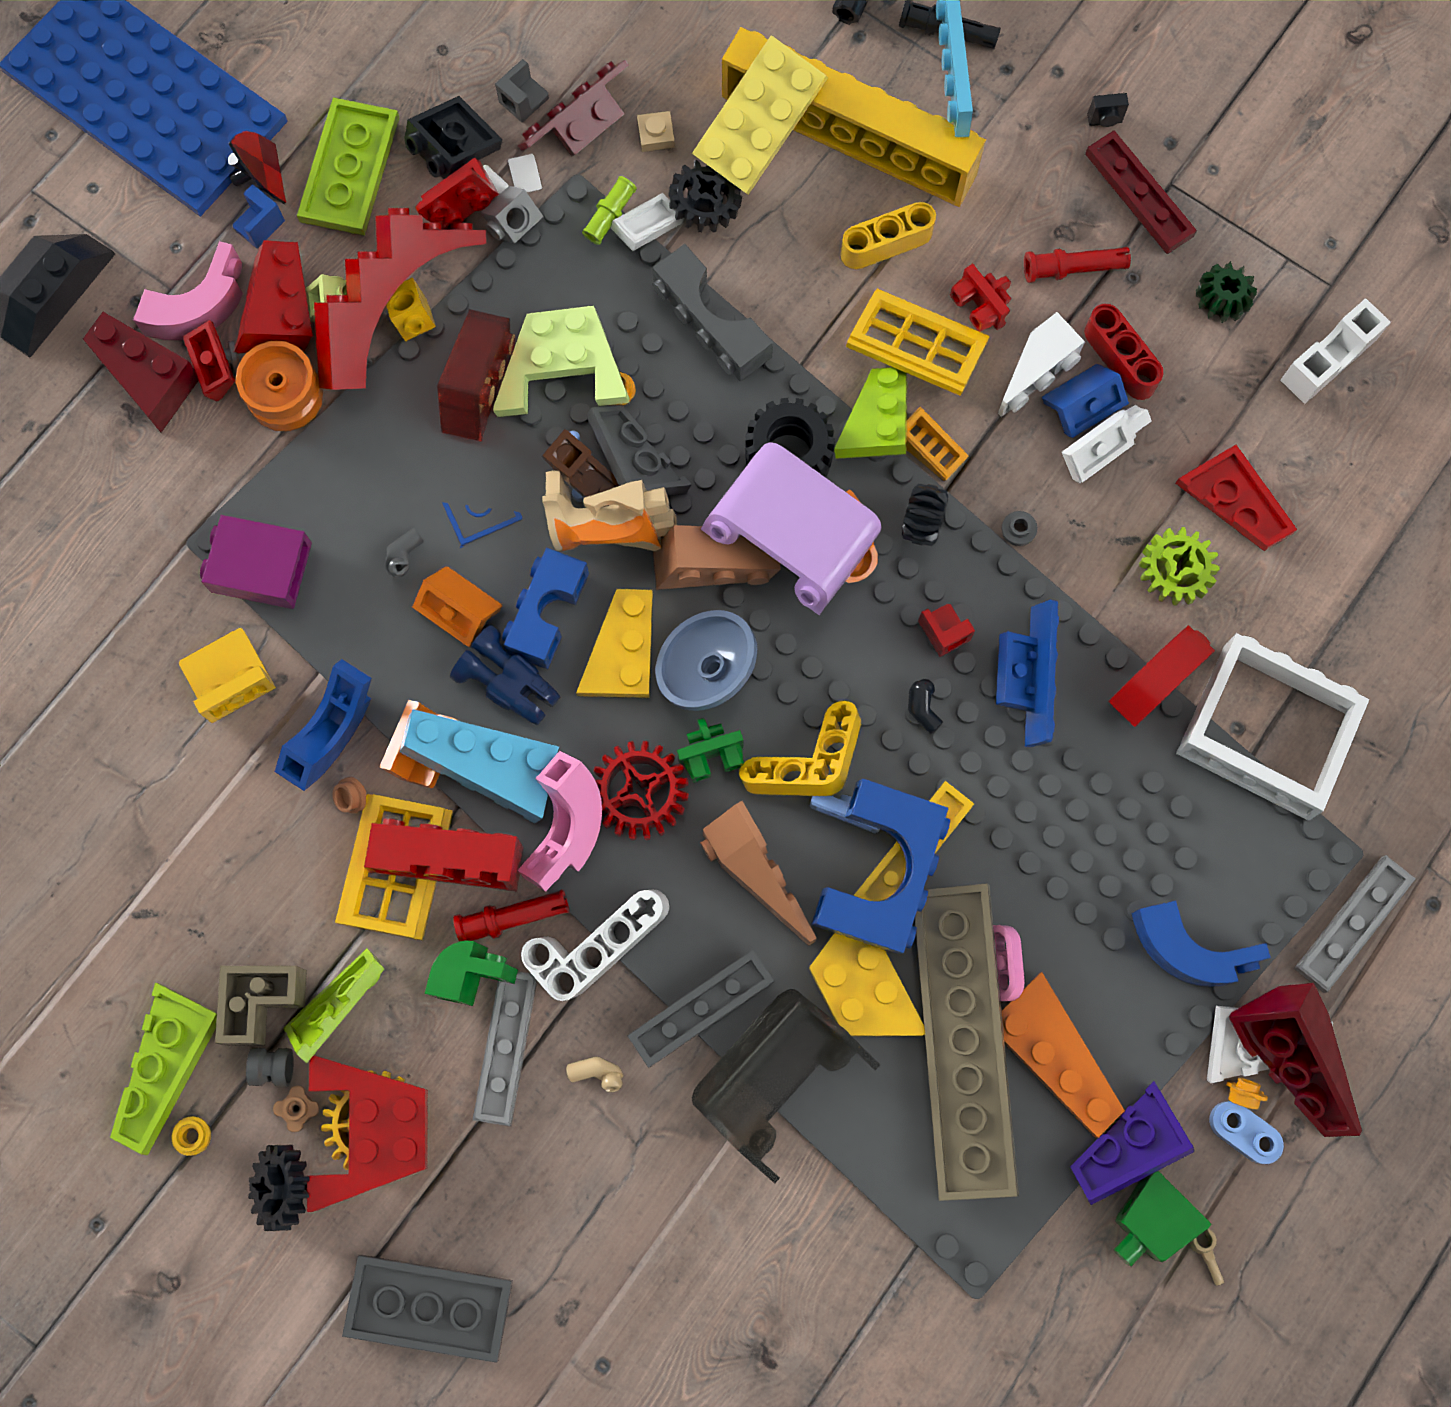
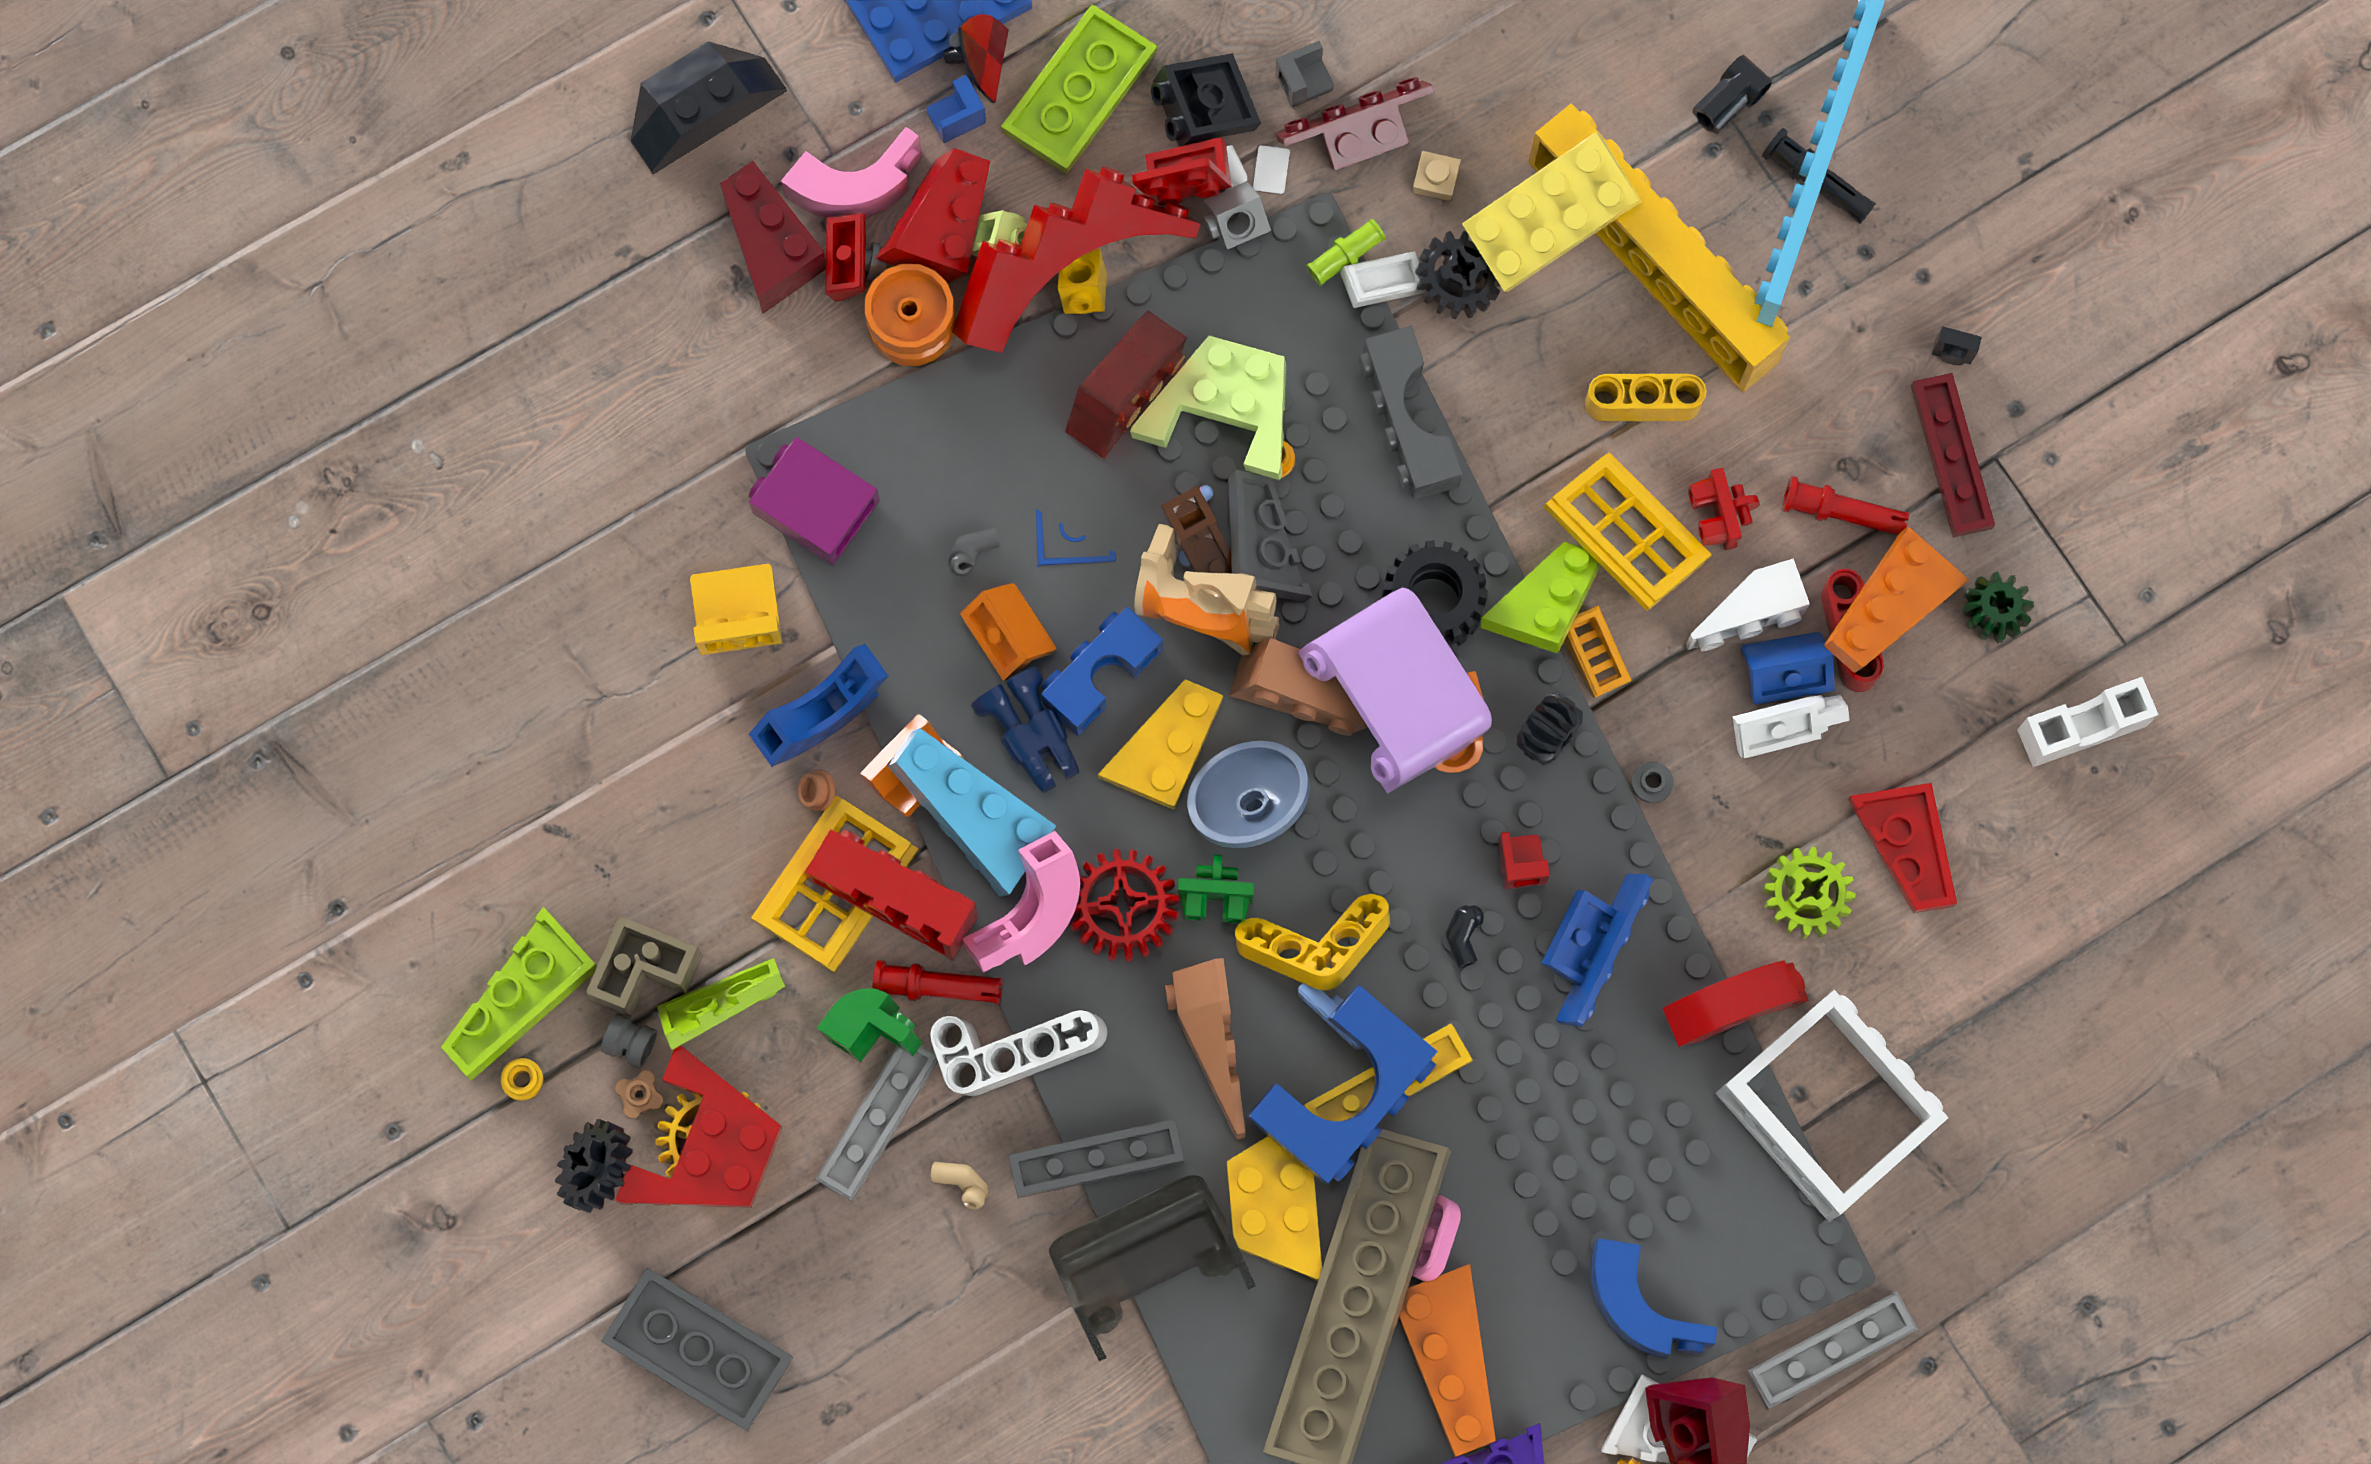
camera: 20 degrees right, 0 degrees up
(1147, 314) = (1895, 598): none -> orange wing

